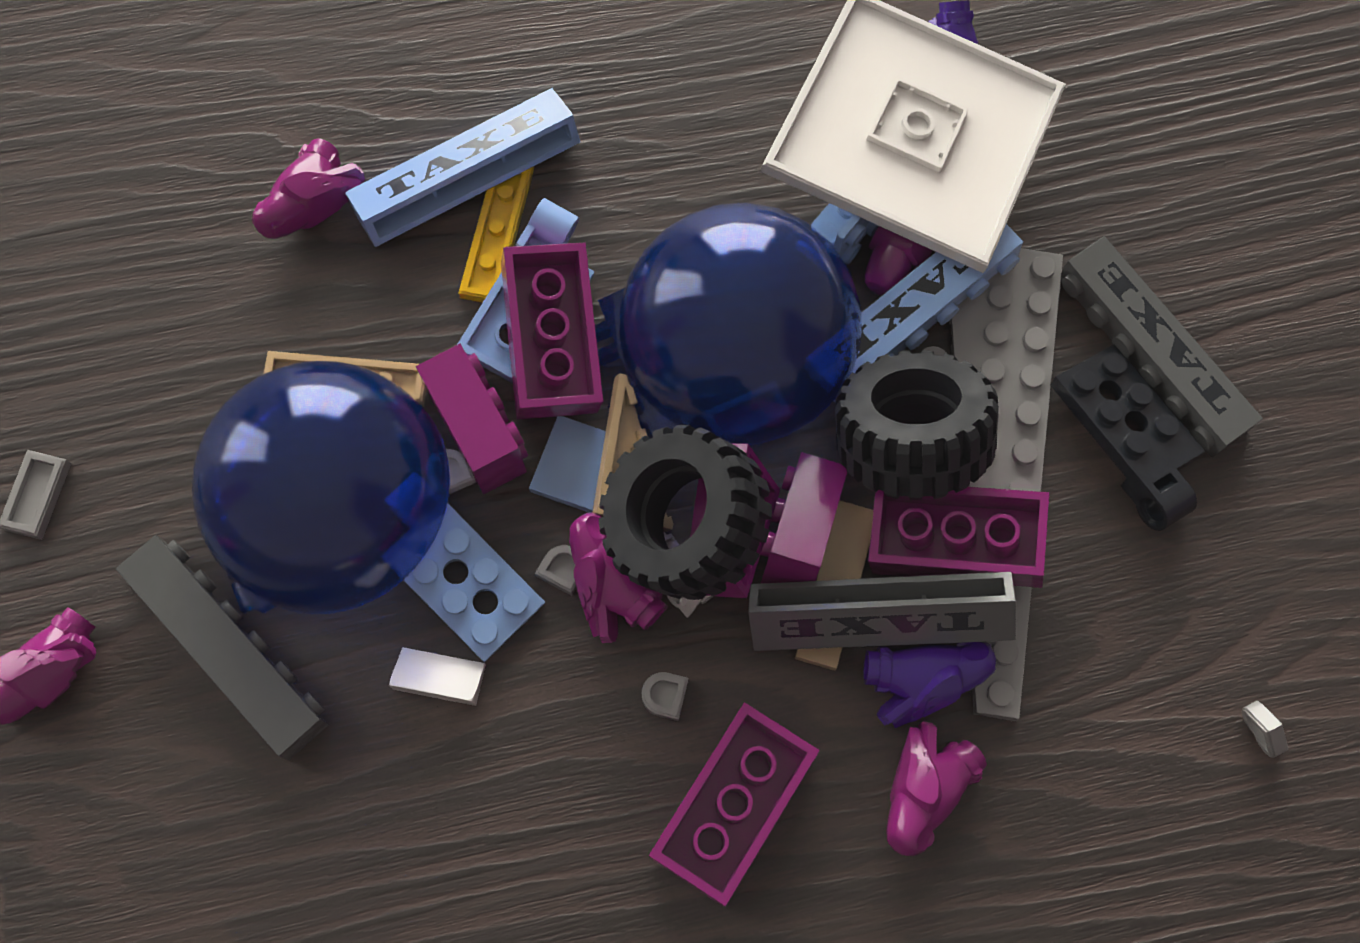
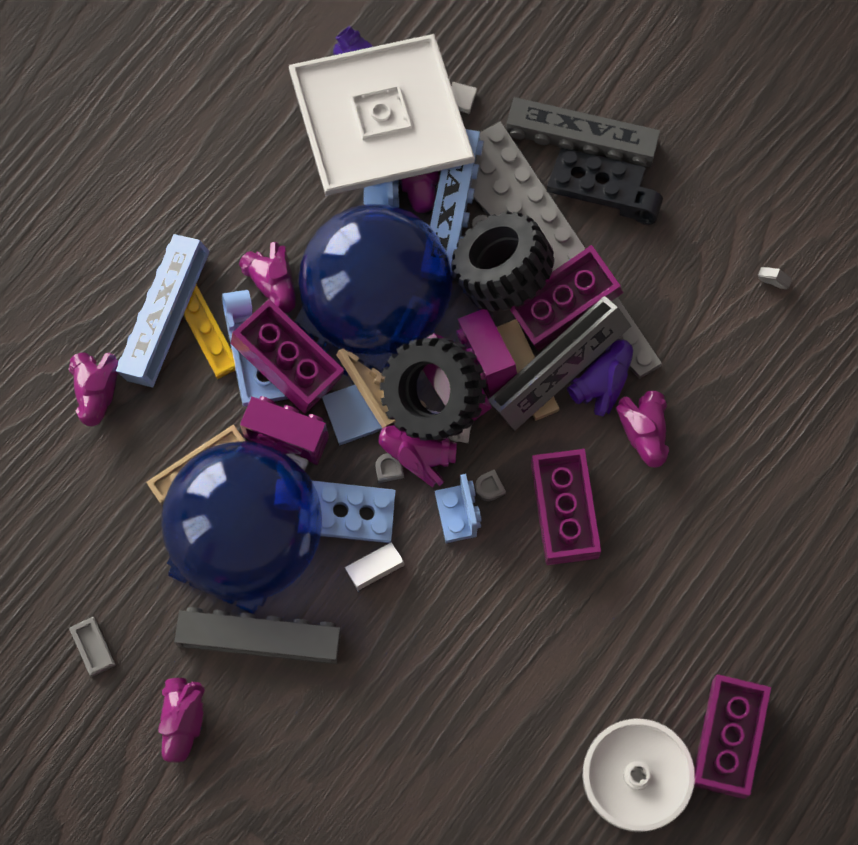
camera: 35 degrees left, 0 degrees up
(594, 693) = (457, 512): none -> light blue bracket
(624, 226) = (271, 275): none -> magenta animal
(1040, 192) = (464, 96): none -> white tile

